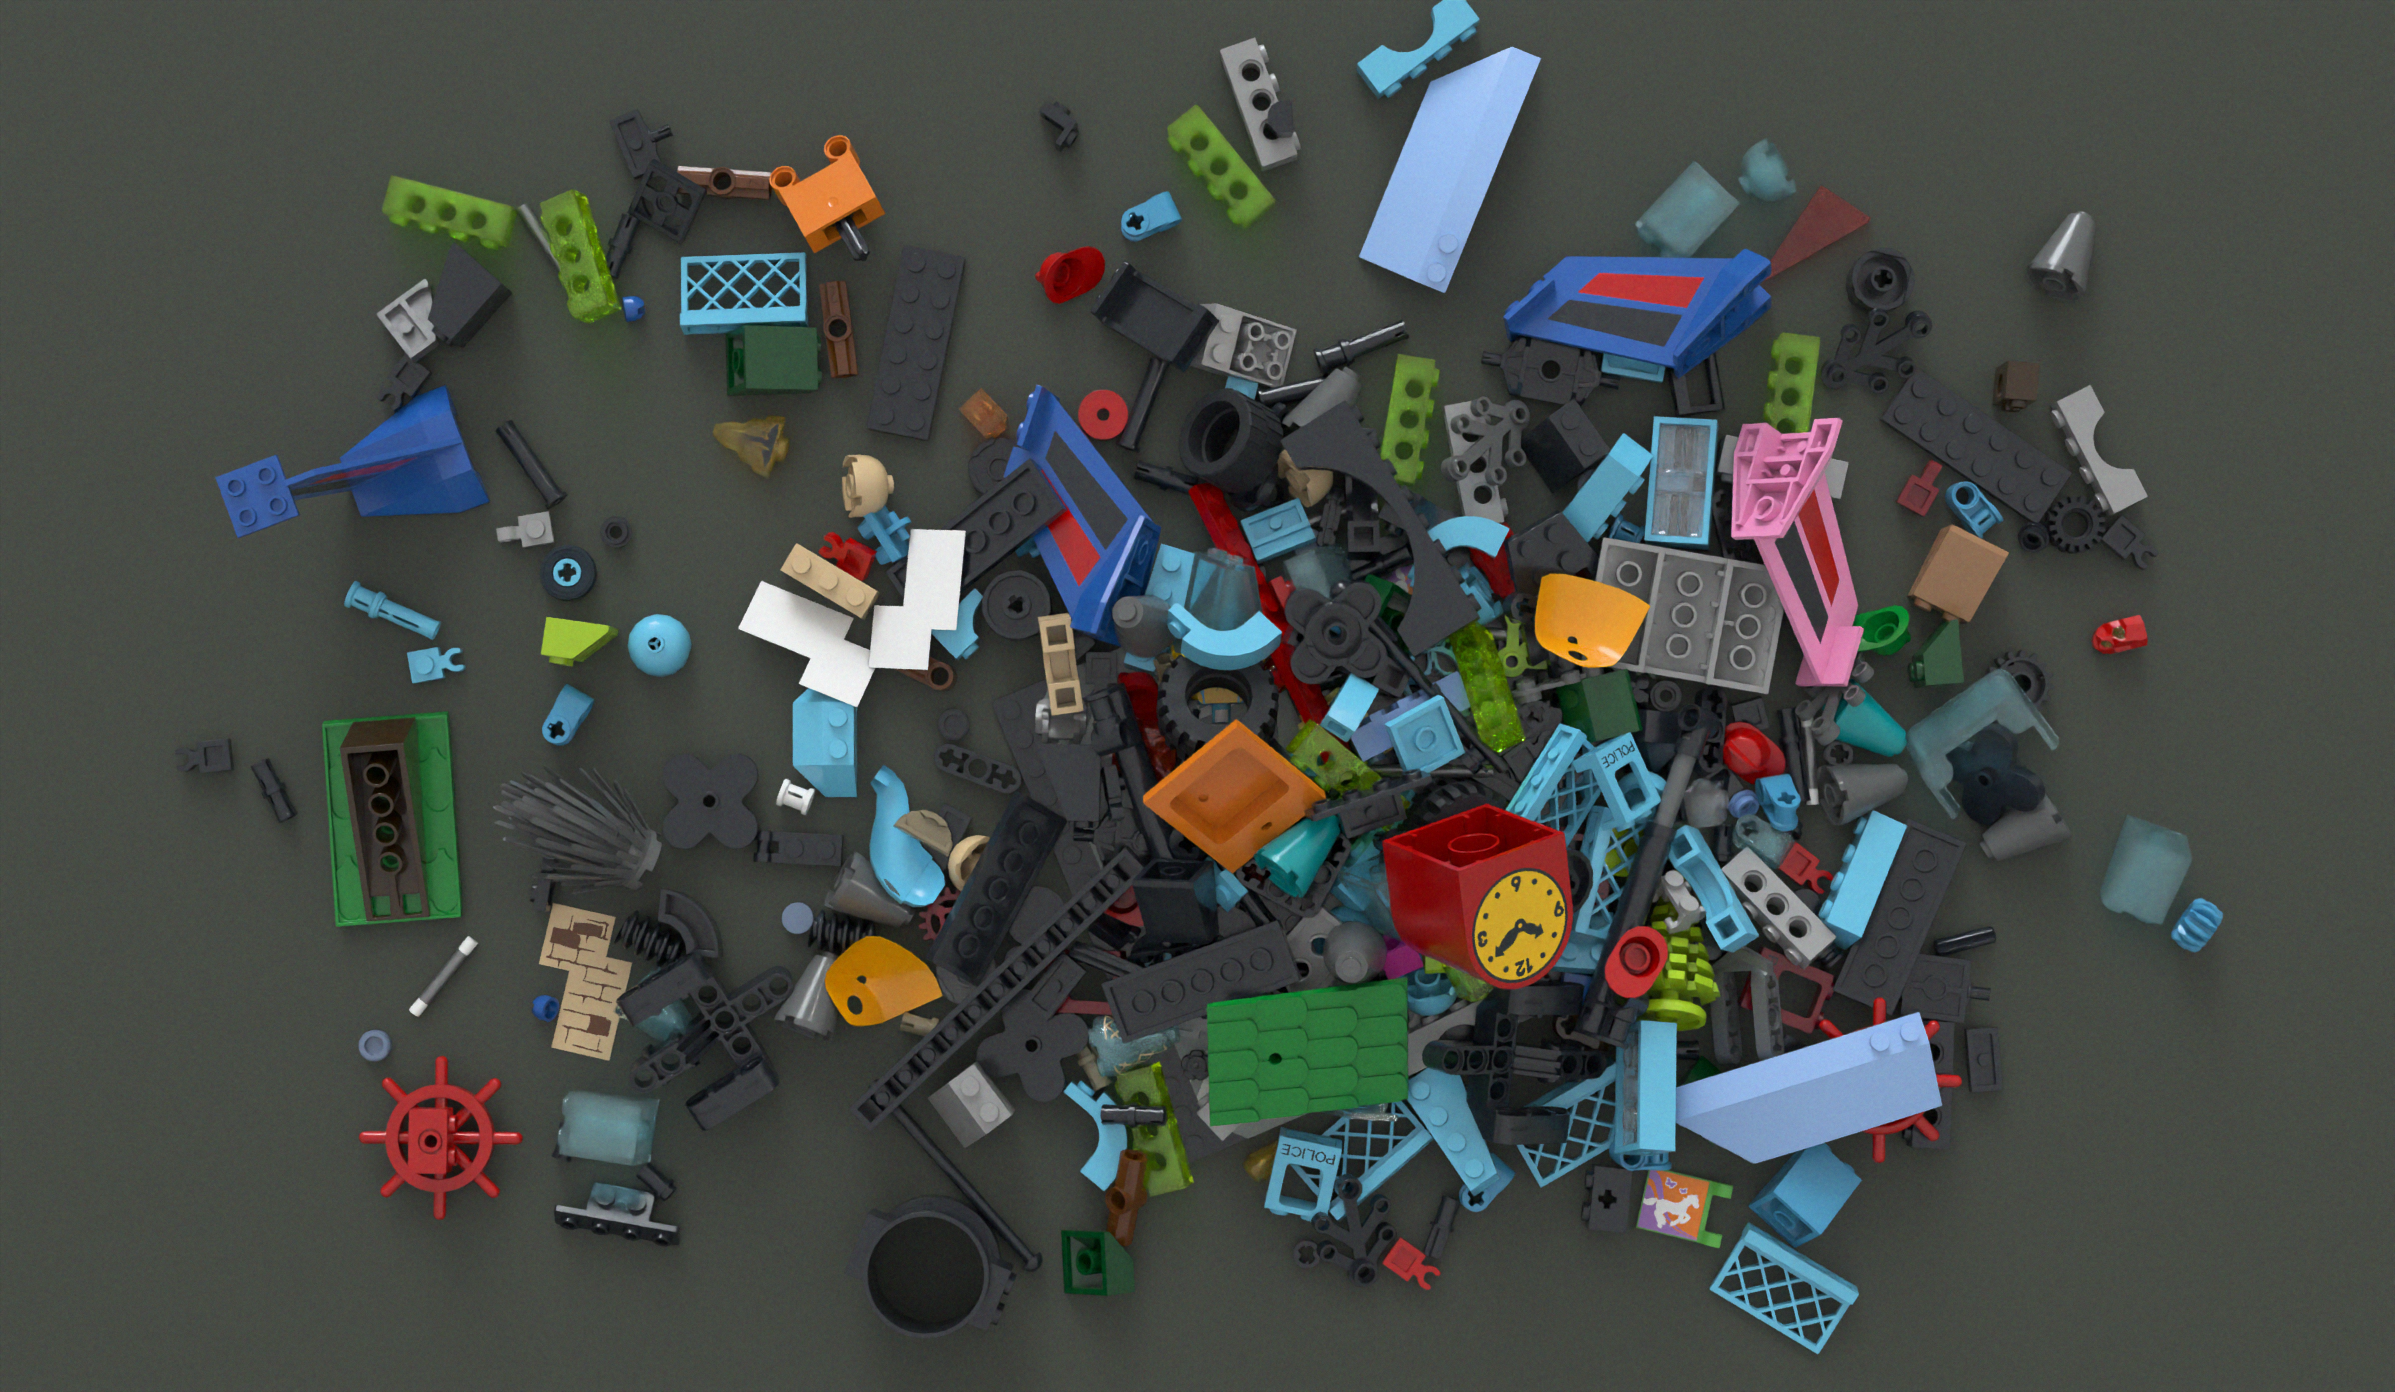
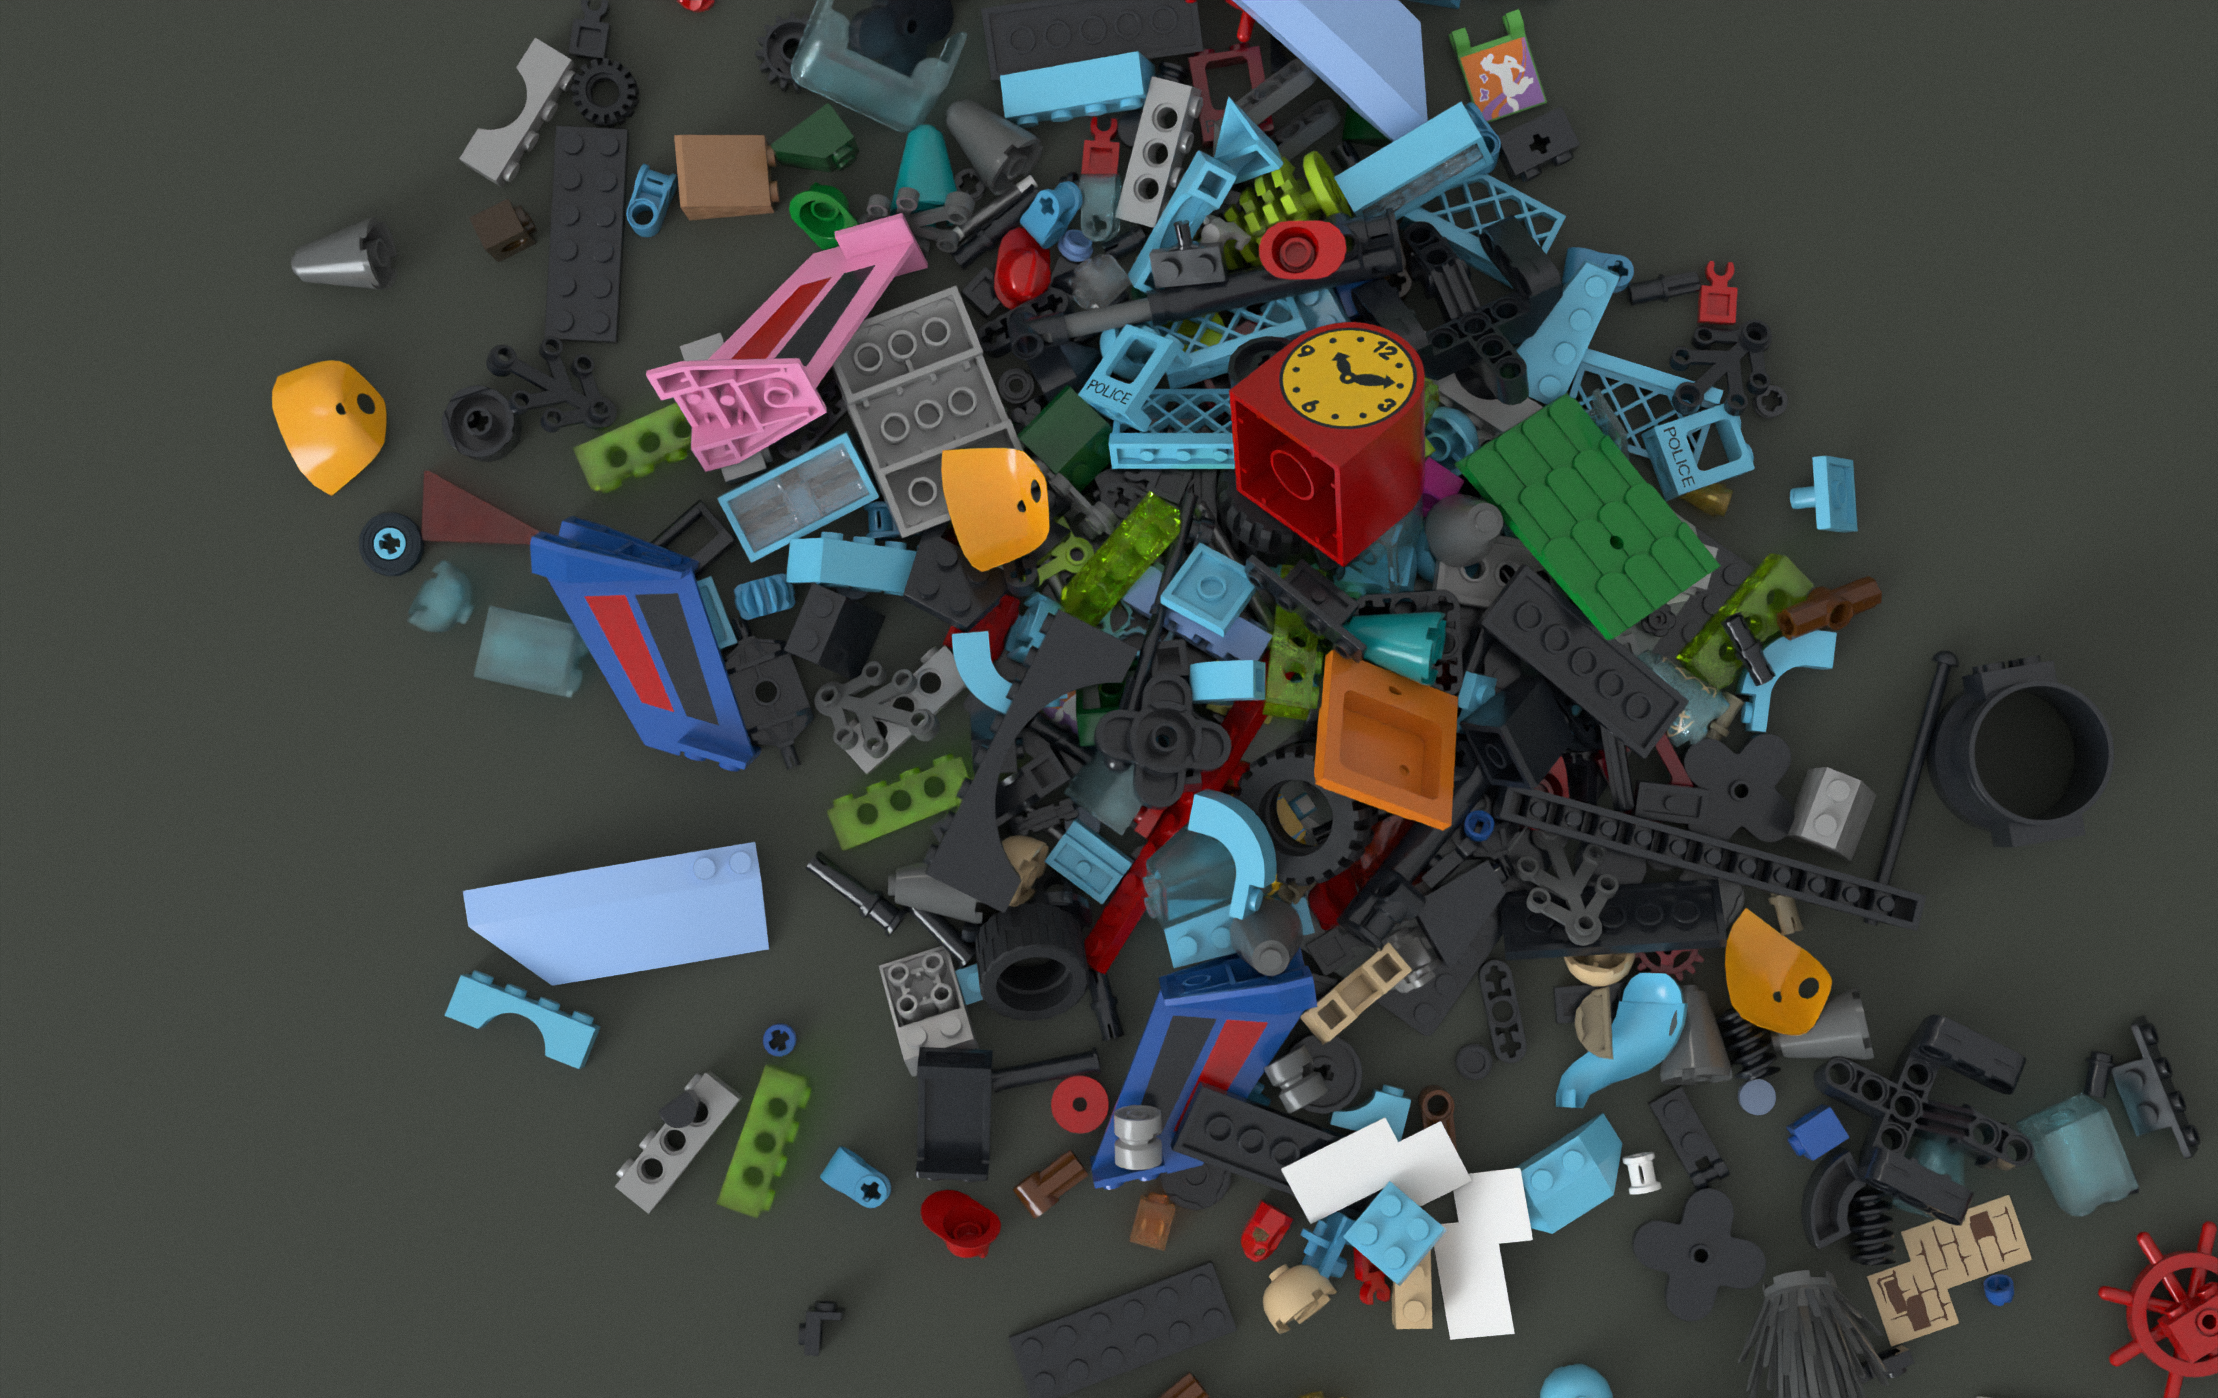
camera: 125 degrees left, 0 degrees up
(744, 944) = (1816, 1133): none -> blue brick
(866, 584) = (1394, 1233): none -> medium azure plate
(926, 492) = (1264, 1231): none -> red rock
(1025, 581) = (1296, 1079): none -> dark grey wheel
(1039, 869) = (1568, 888): none -> dark grey plant
(1052, 437) = (1137, 1141): none -> light grey wheel
(1058, 352) = (1044, 1188): none -> reddish brown piece
(1095, 1264) = (1911, 597): dark green slope -> none
(1133, 828) = (1470, 825): none -> blue hinge
(1209, 1252) = (1831, 494): none -> medium azure tile
(1279, 230) = (769, 1035): none -> blue bush
(1622, 411) = (764, 596): none -> dark azure gear
(1680, 874) = (1188, 261): none -> black plate
(1740, 973) = (1245, 146): none -> medium azure slope
(1822, 148) = (401, 529): none -> black bush
(1919, 492) = (667, 261): dark red plate -> none
(1939, 154) = (323, 443): none -> light orange piece
(2031, 543) = (649, 125): black plate -> none

